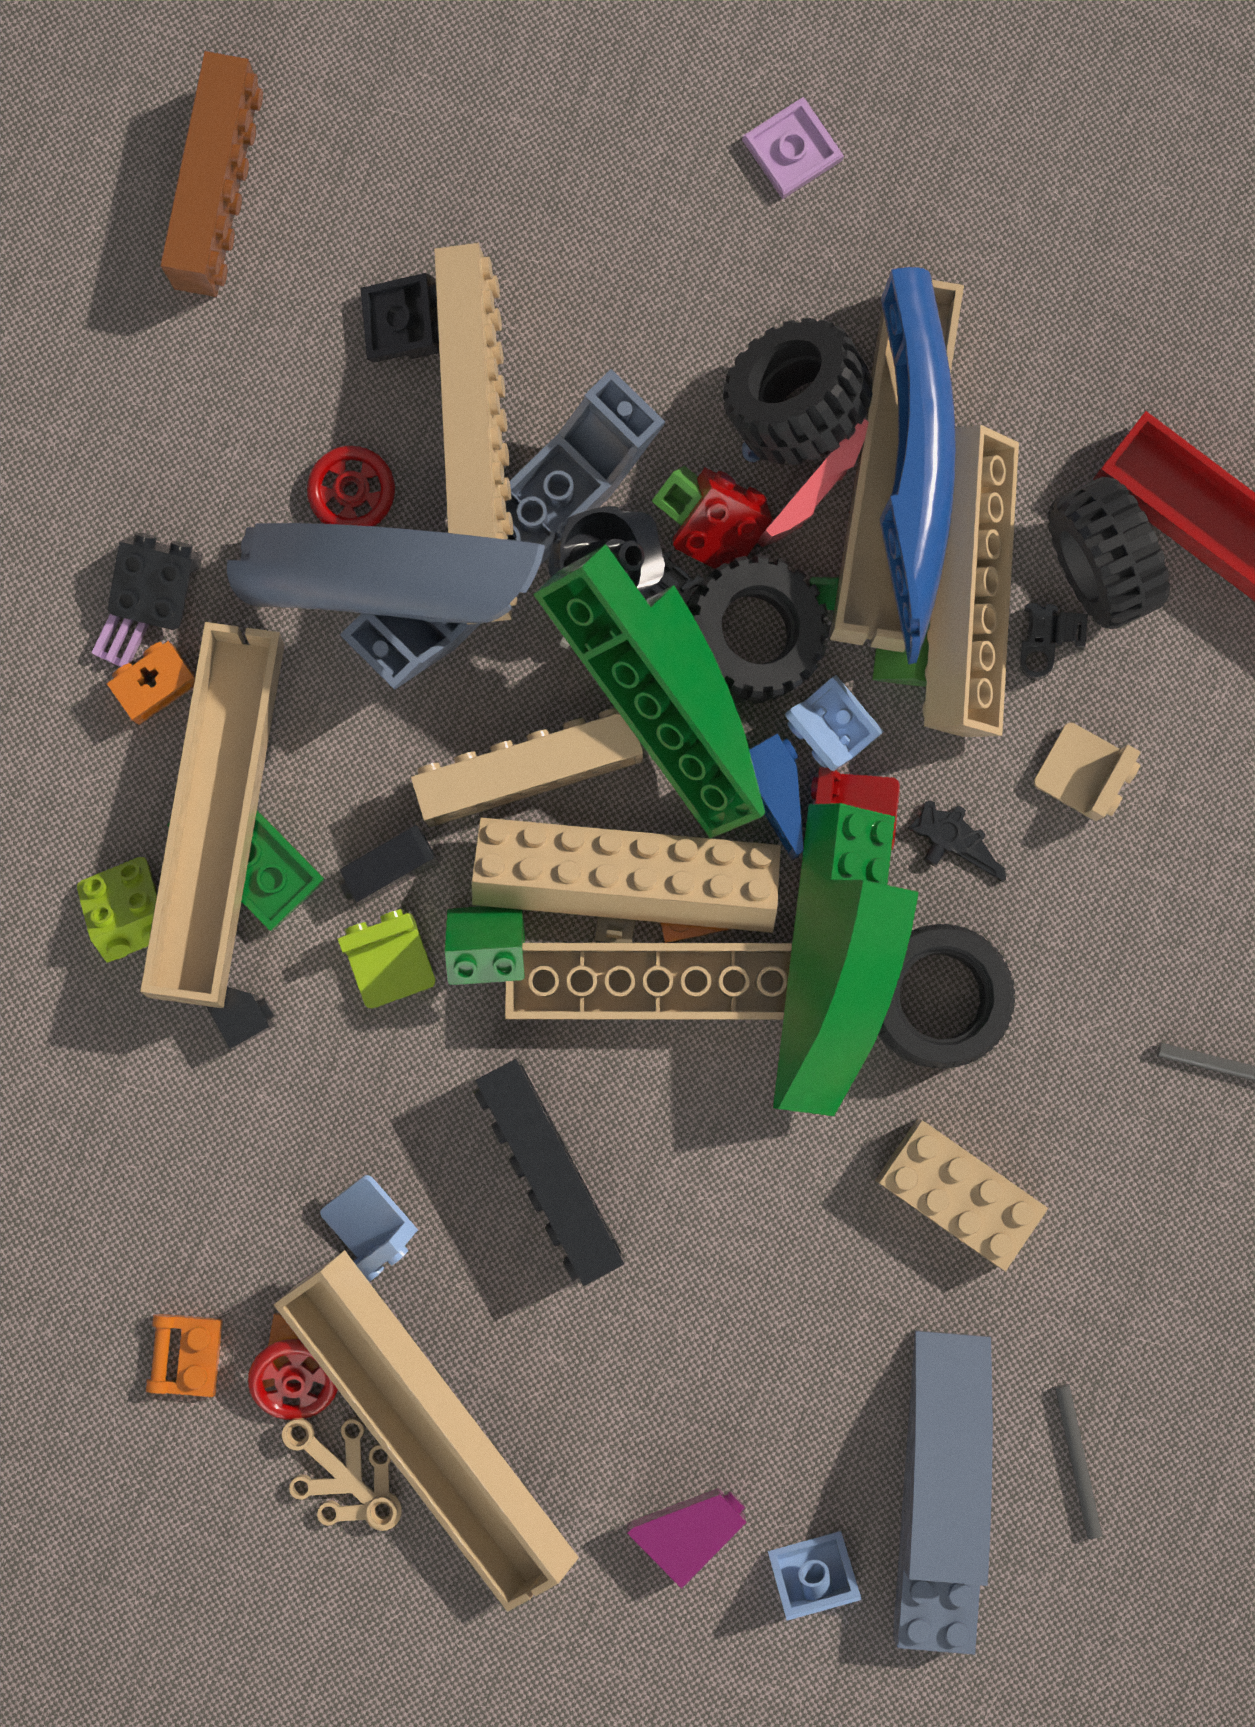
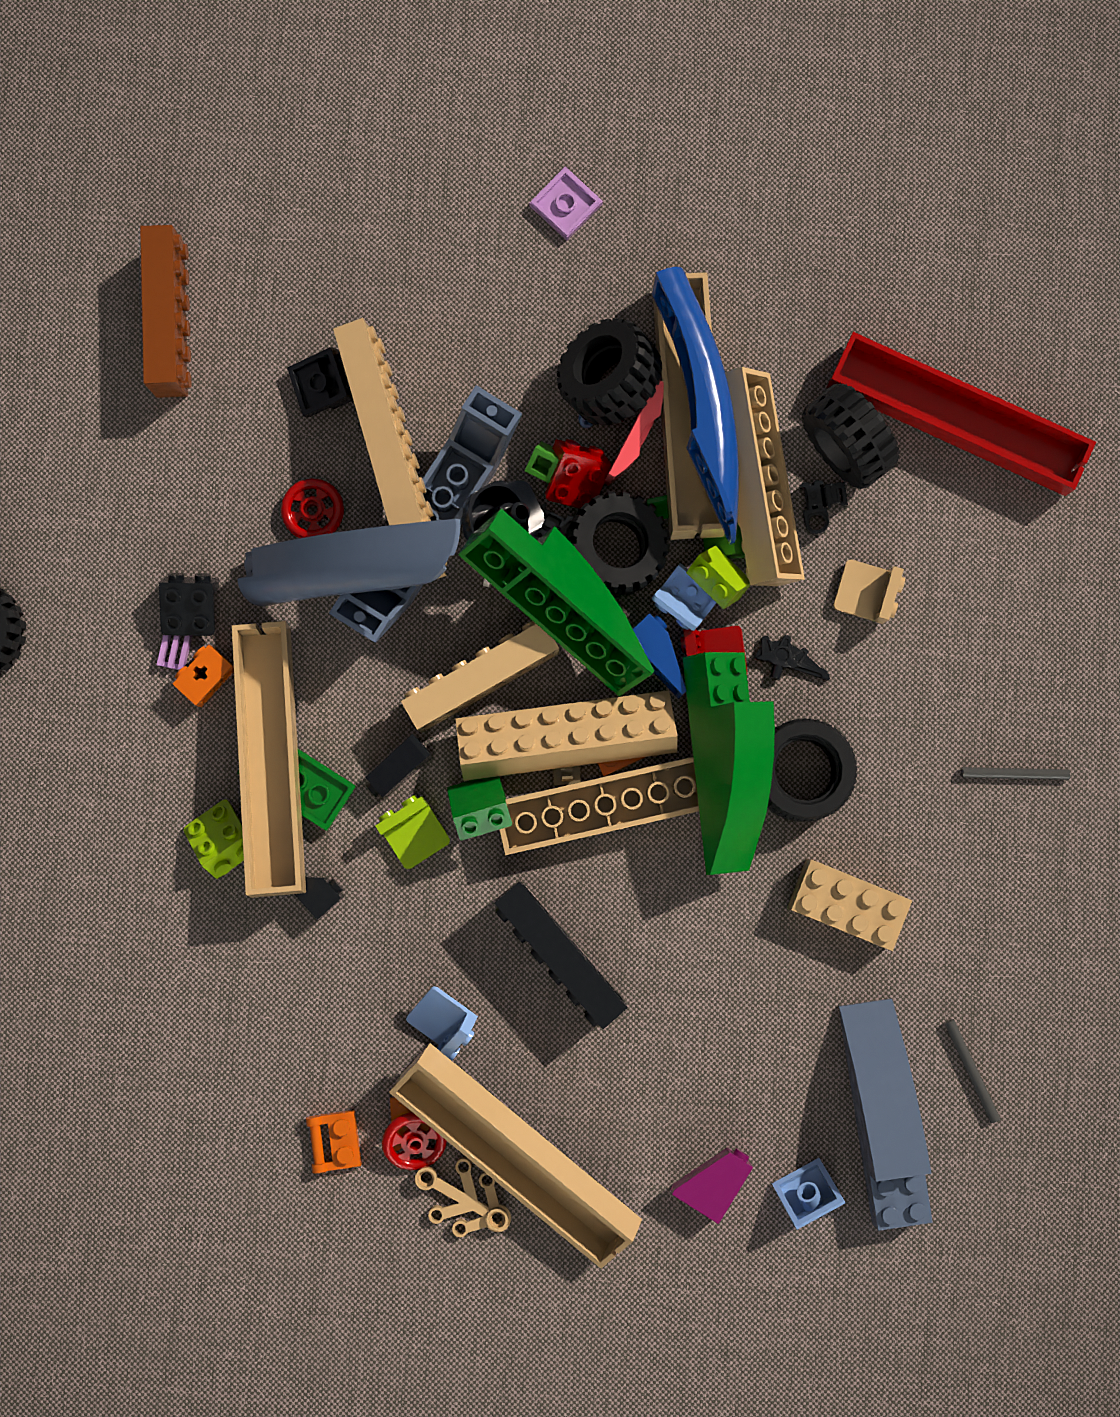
camera: 15 degrees left, 0 degrees up
(884, 706) = (719, 577): none -> lime brick

